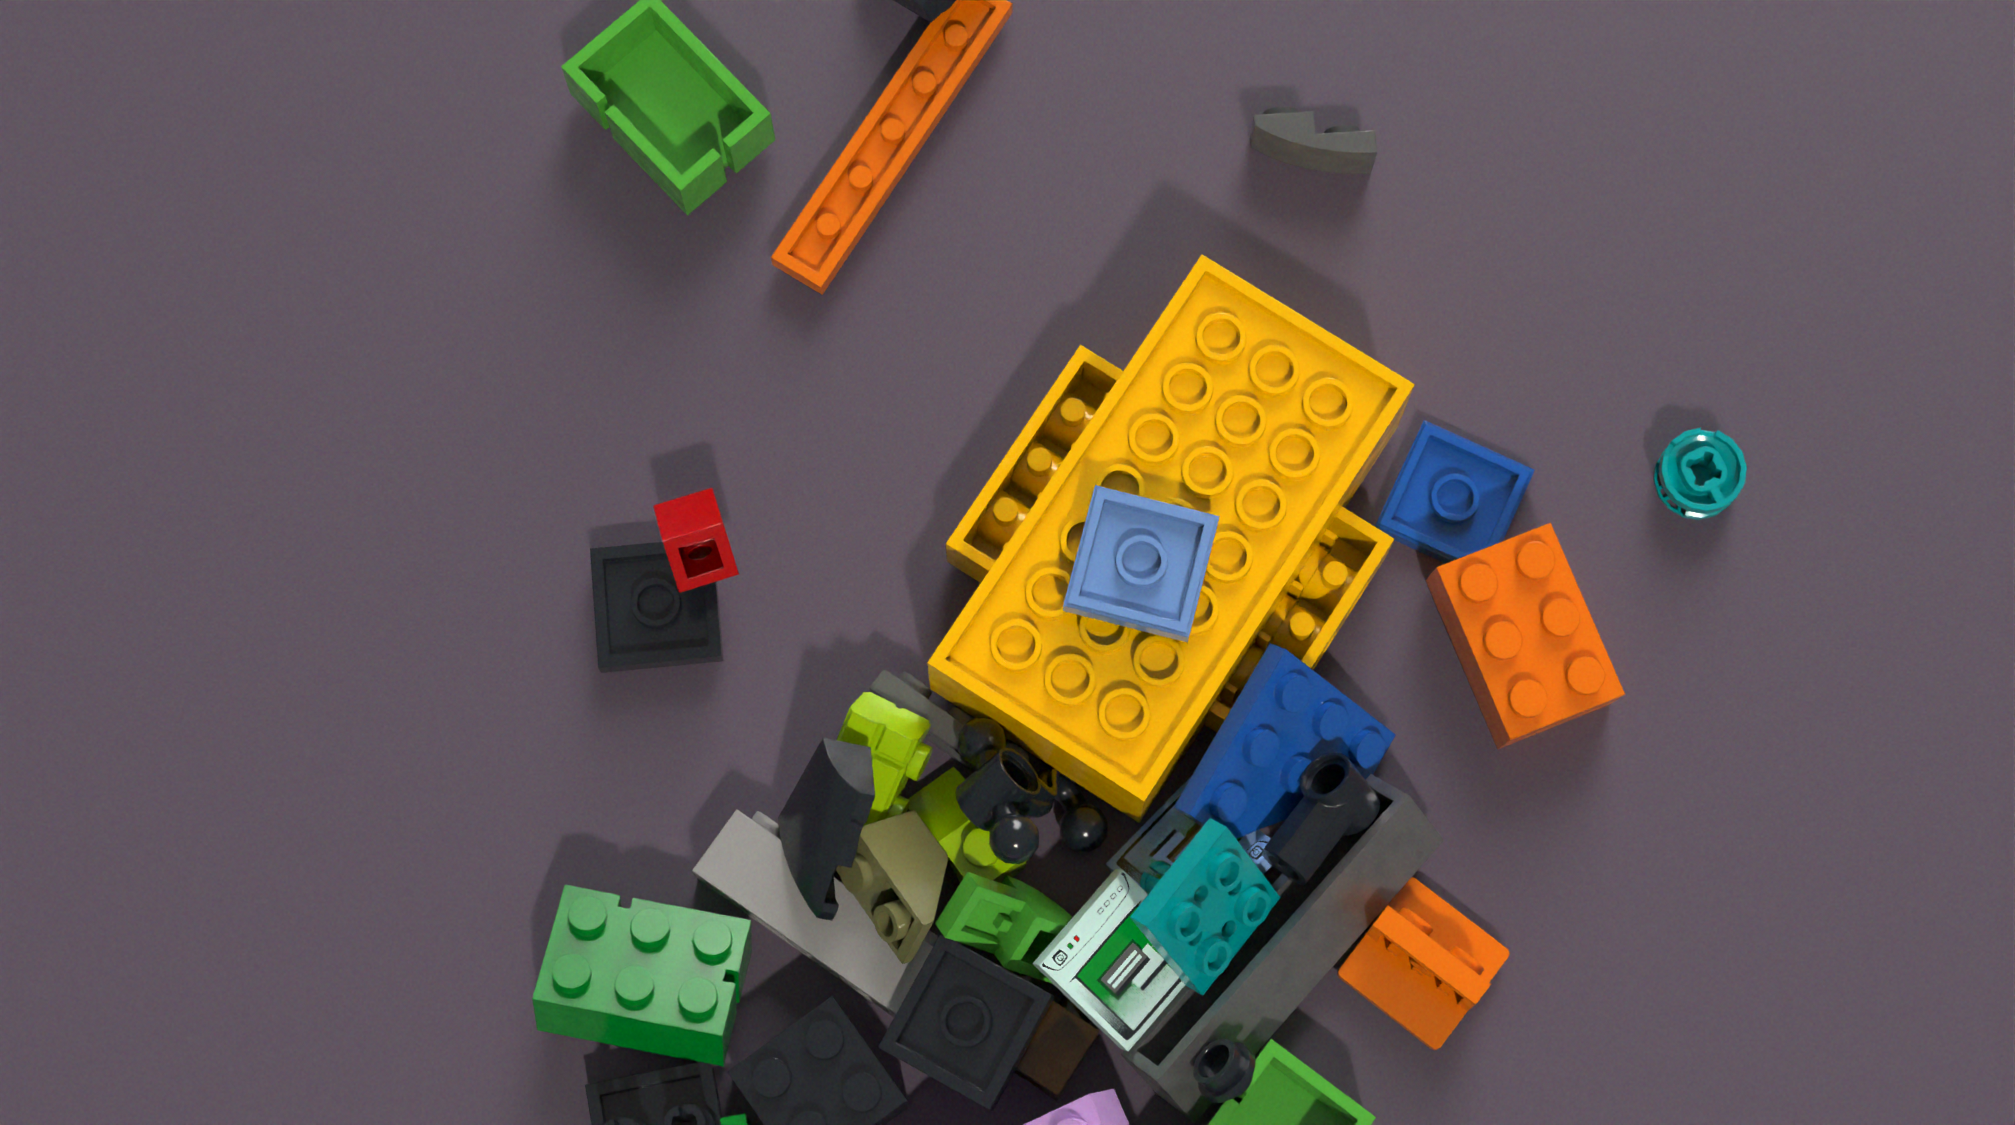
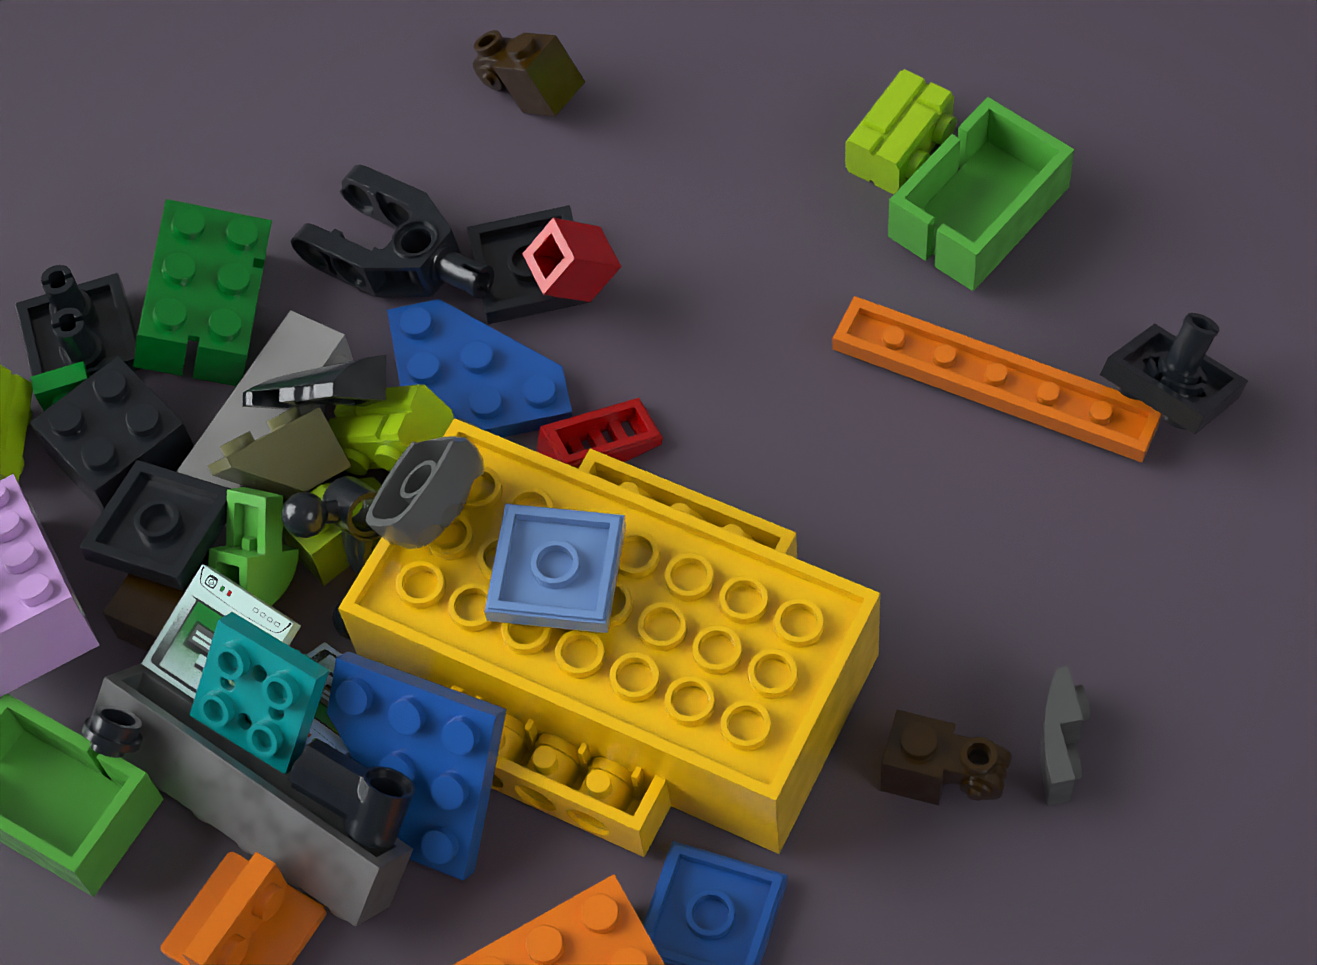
camera: 90 degrees right, 15 degrees down
(387, 572) = (531, 68): none -> dark brown brick
(558, 176) = (900, 131): none -> lime brick
(568, 726) = (415, 260): none -> black piece
(785, 683) = (477, 369): none -> blue plate
(911, 590) = (570, 432): none -> red slope
(1034, 688) = (425, 491): none -> dark grey piece
(1330, 256) = (928, 754): none -> dark brown brick

